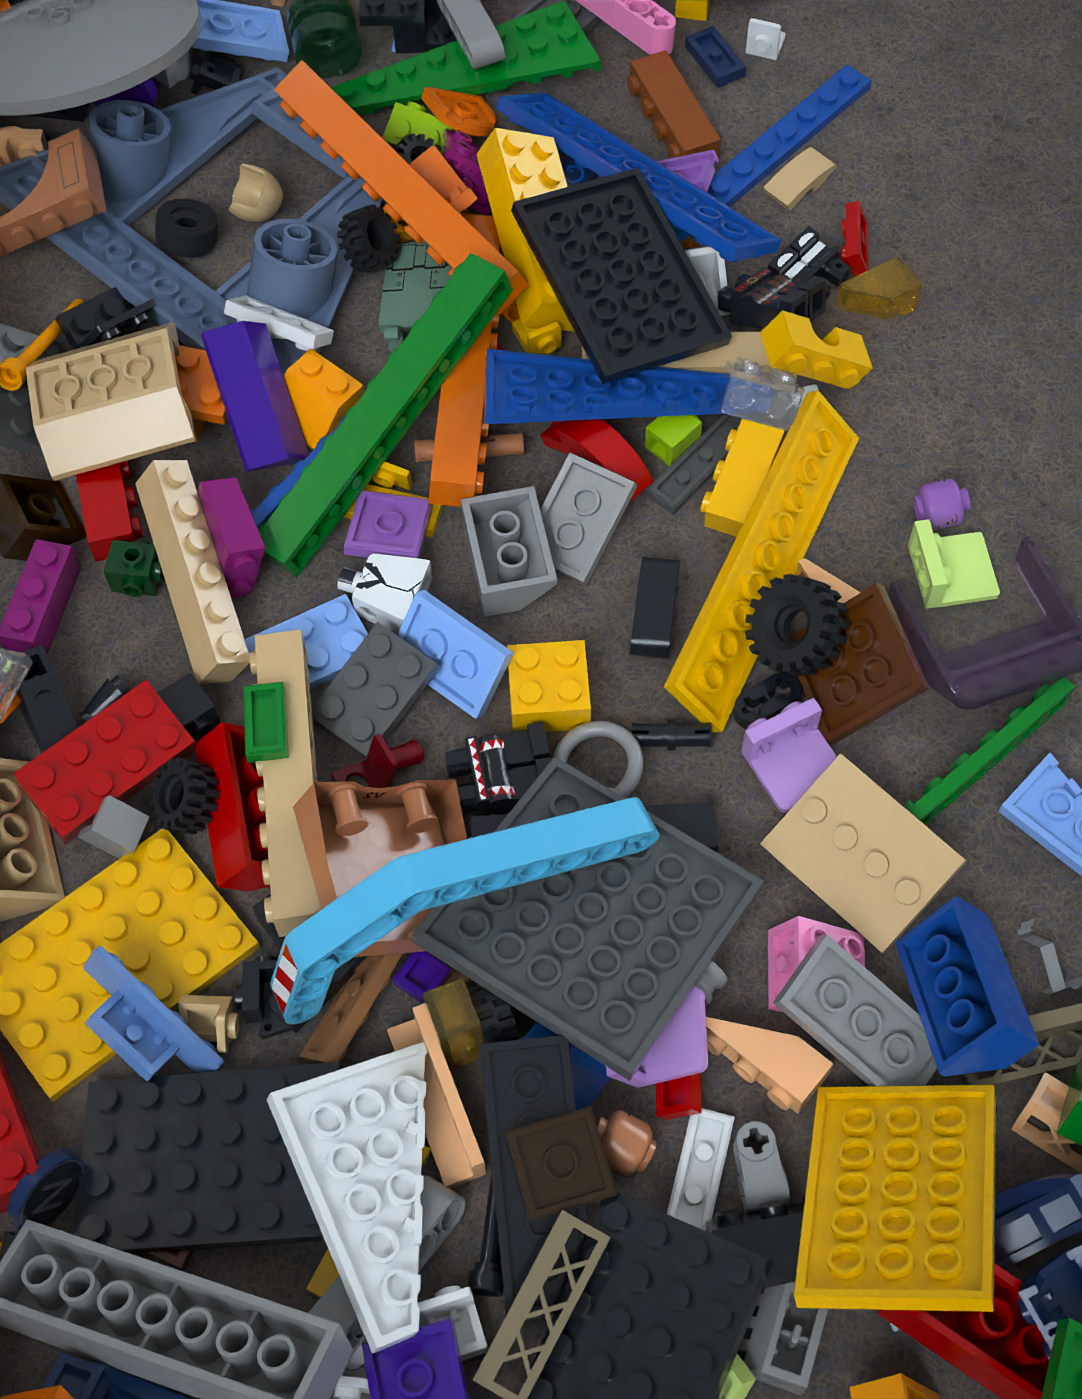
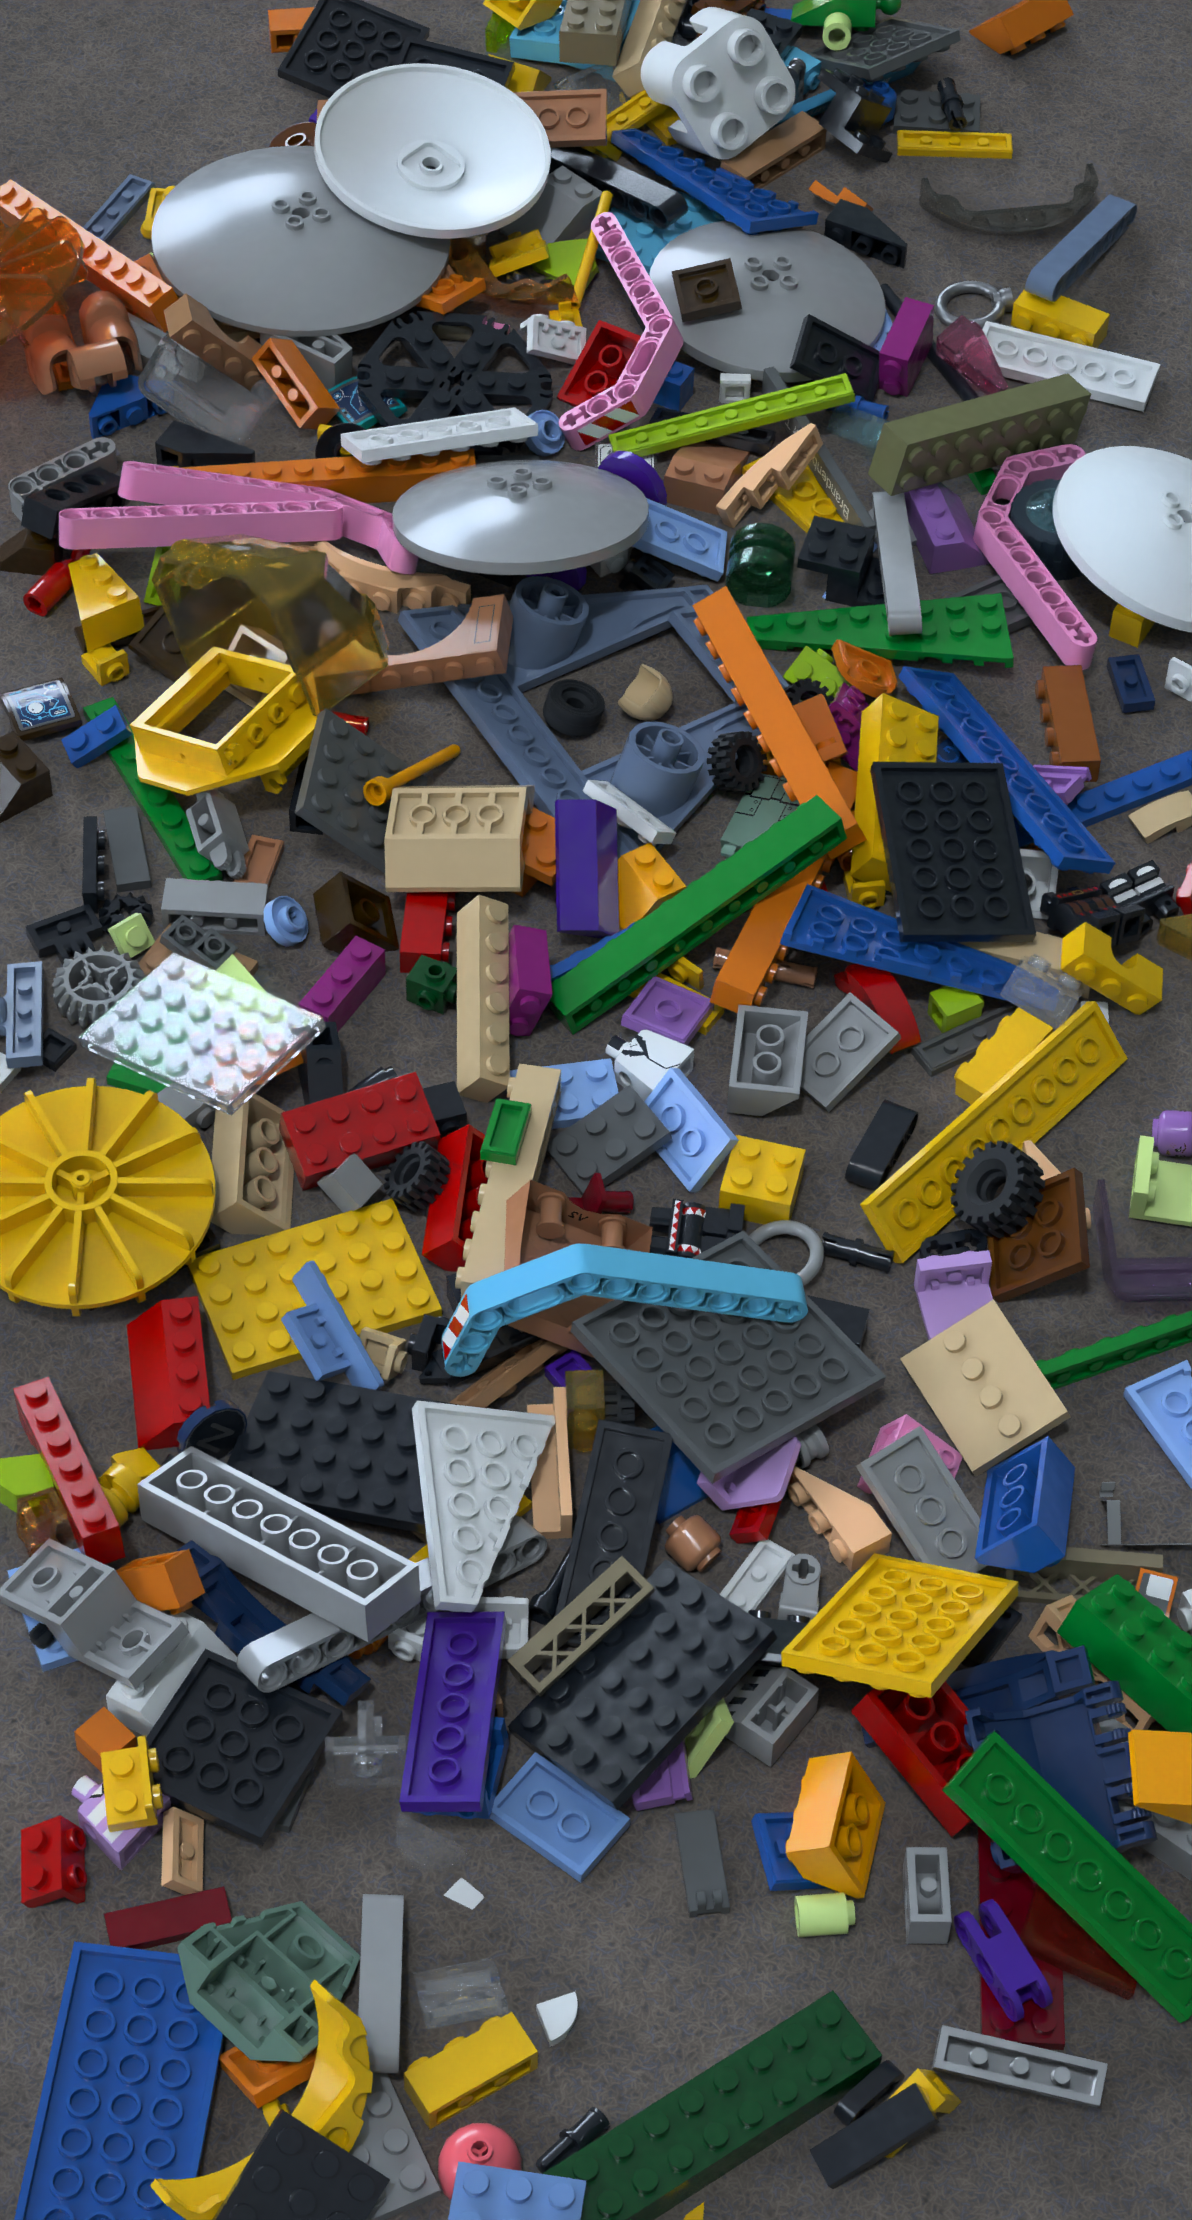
camera: 15 degrees right, 10 degrees down
(102, 319) = (472, 766): black bracket -> none
(560, 1163) = (634, 1526): dark brown plate -> none

